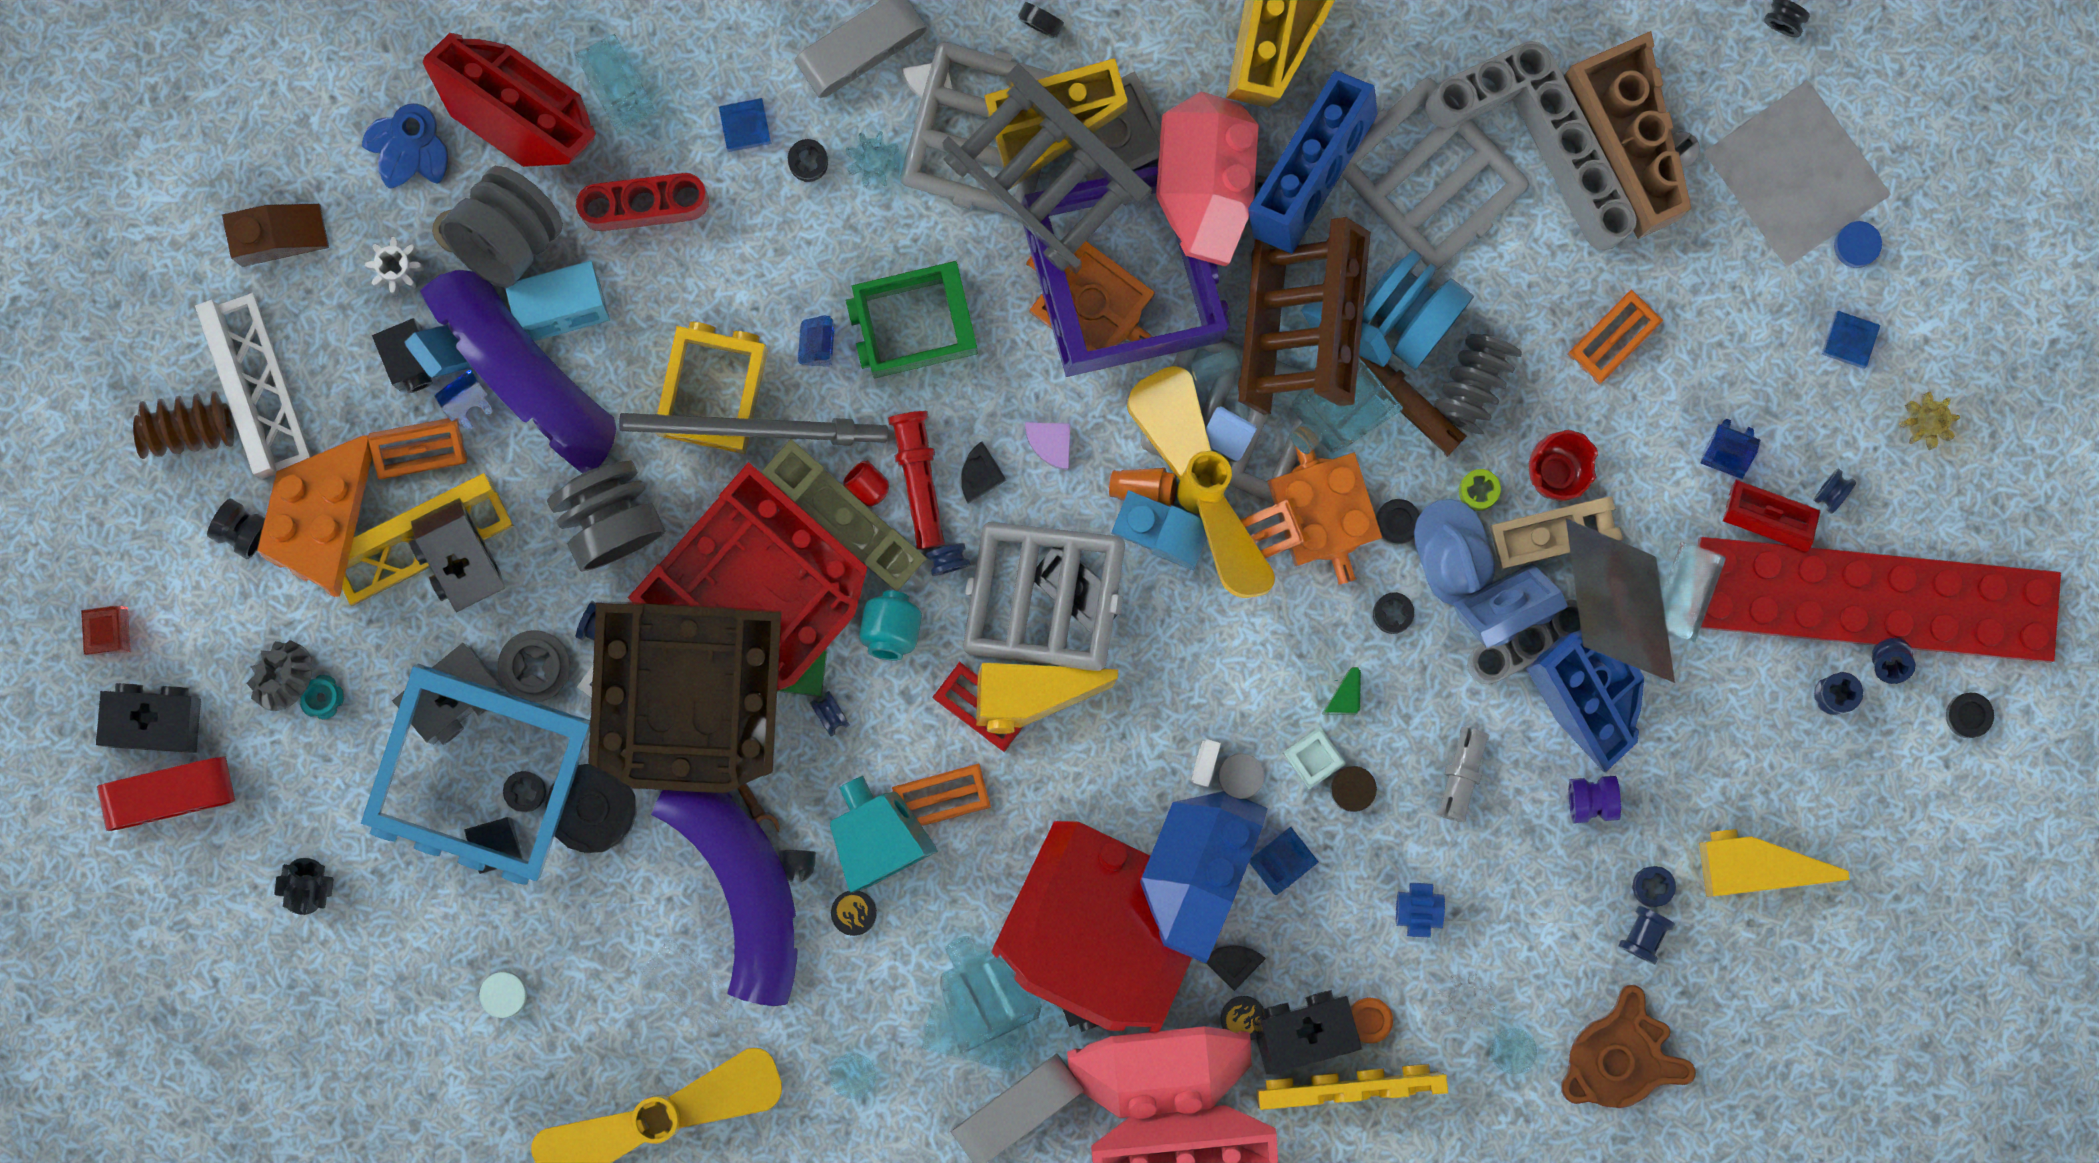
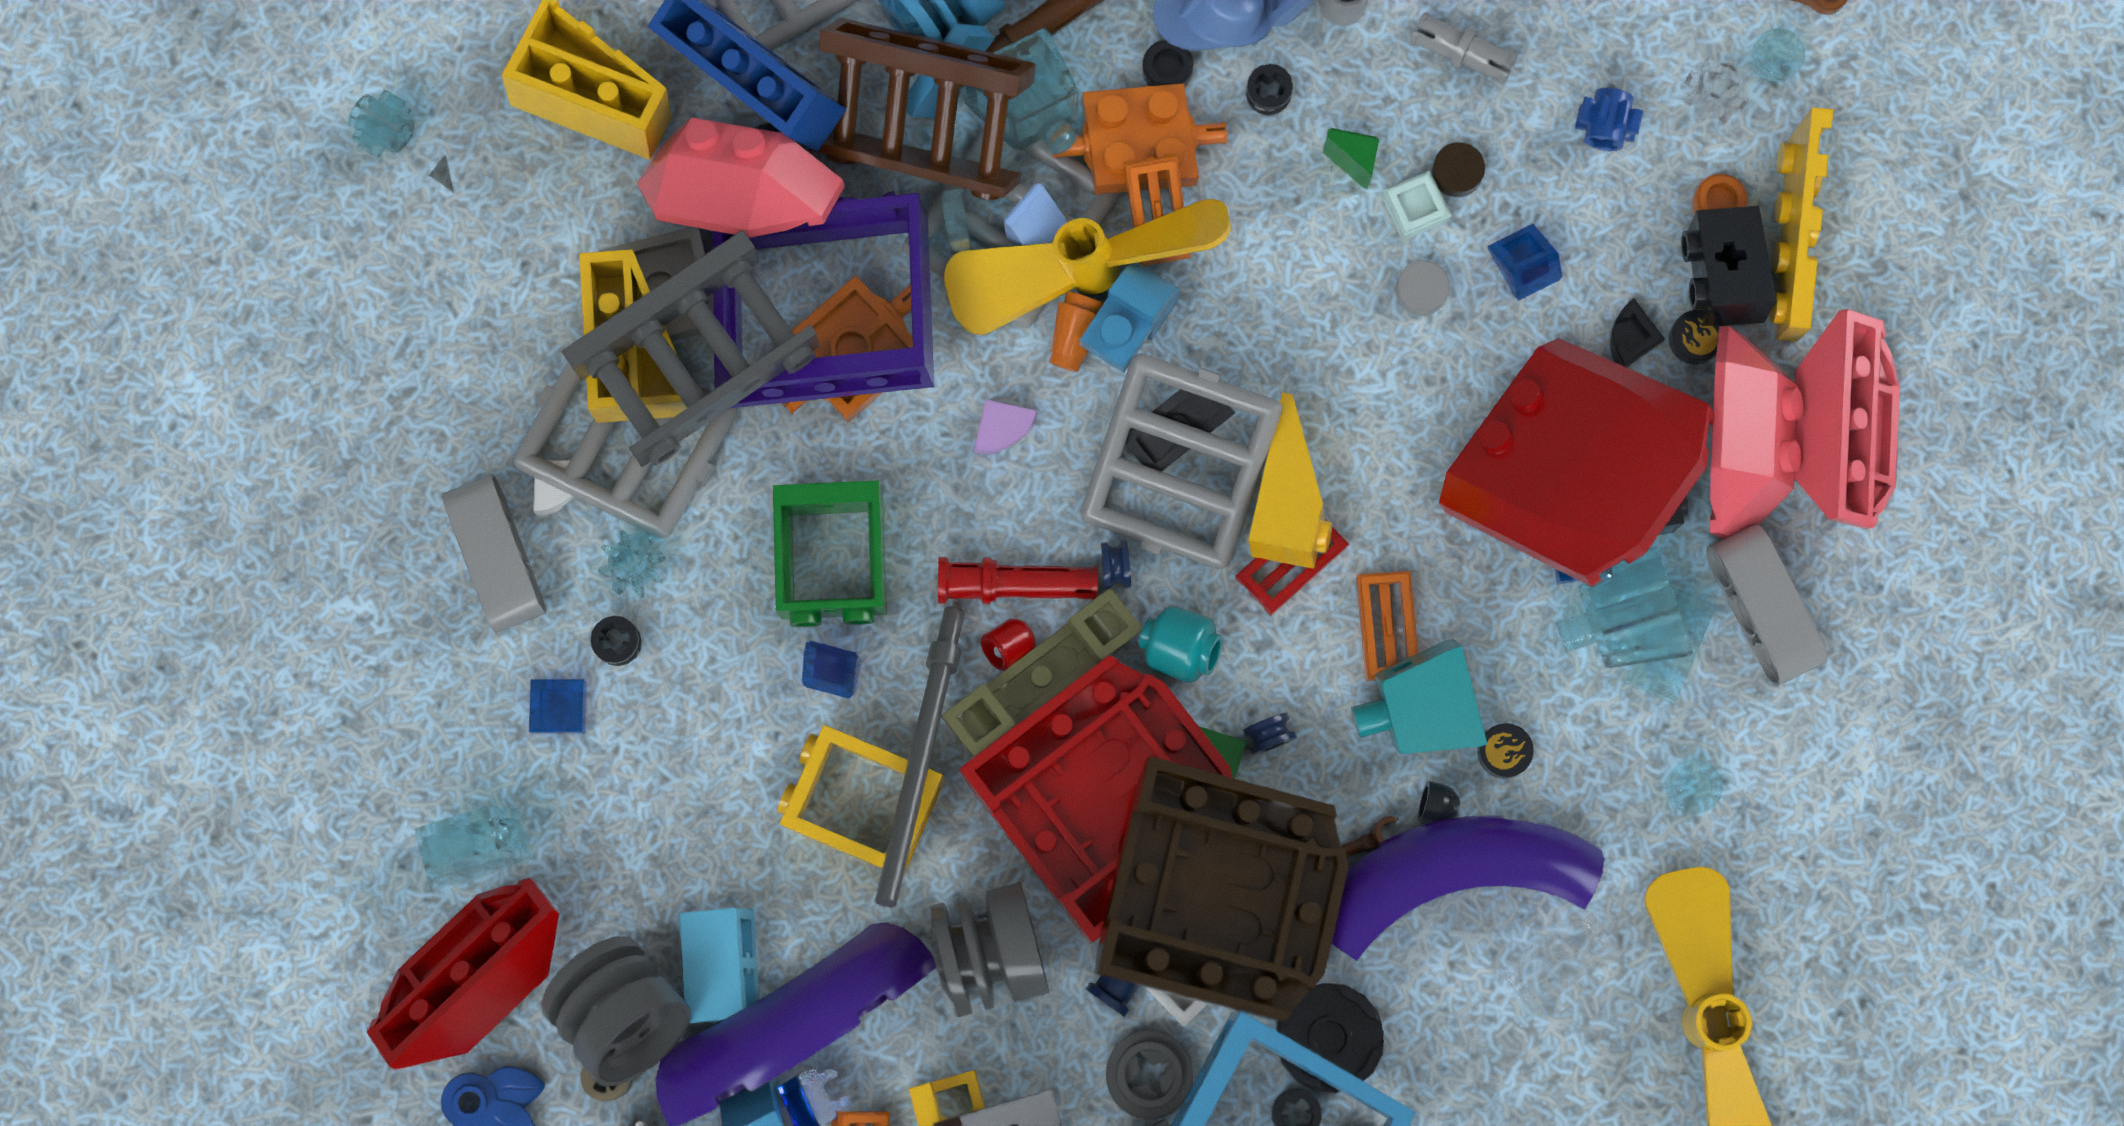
camera: 75 degrees left, 5 degrees down
(621, 194) = (610, 817): red beam -> none
(980, 473) = (1022, 513): black tile -> none
(1040, 20) = (513, 345): black tile -> none
(1200, 868) = (1531, 336): blue wedge -> none
(1205, 763) = (1403, 321): white tile -> none

